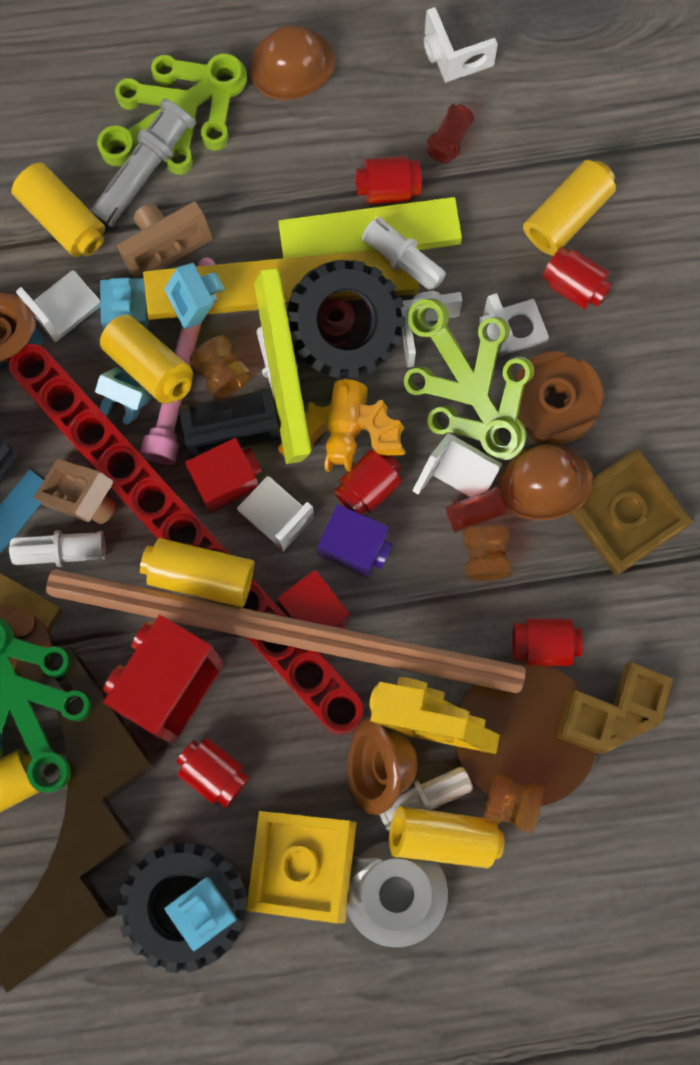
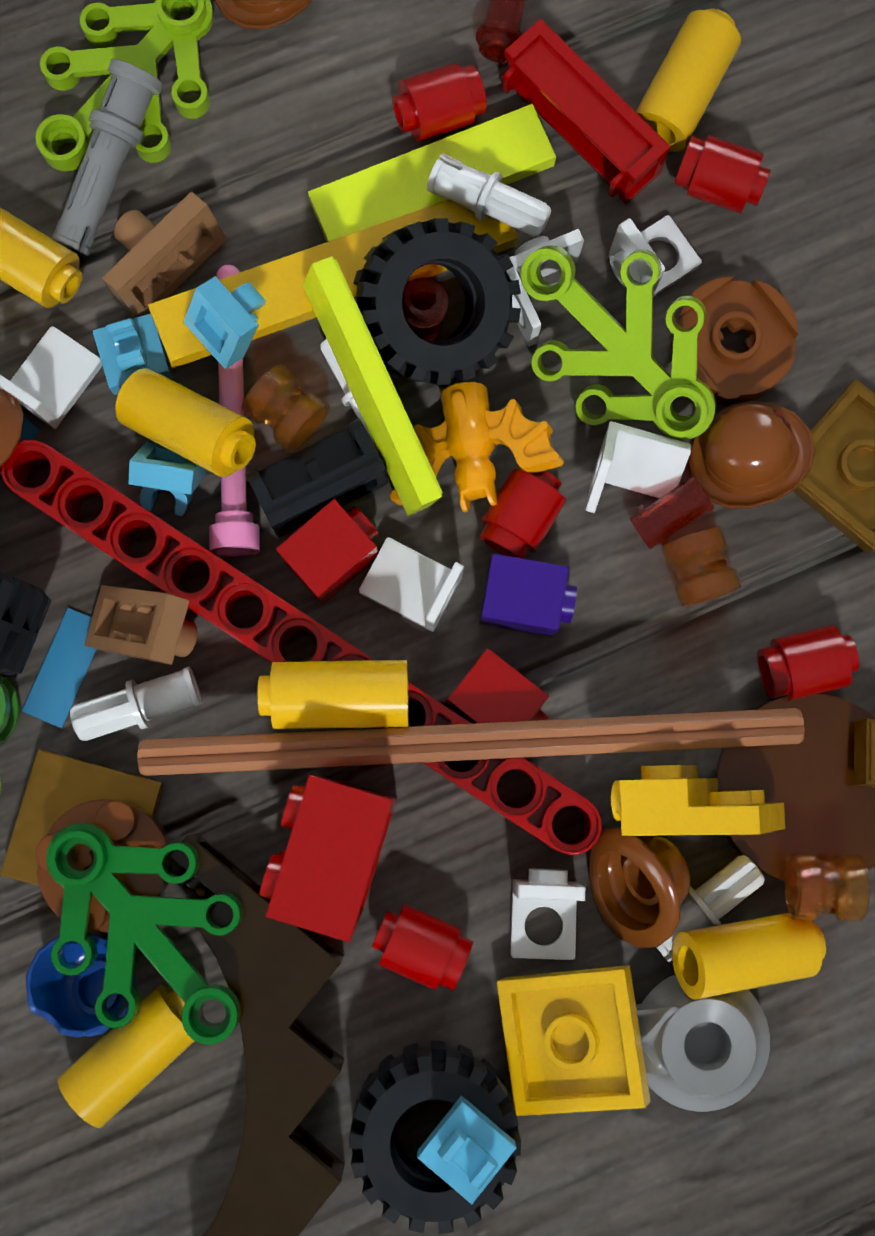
camera: 20 degrees left, 5 degrees up
(311, 755) = (551, 890): none -> white bracket
(490, 212) = (584, 111): none -> red container

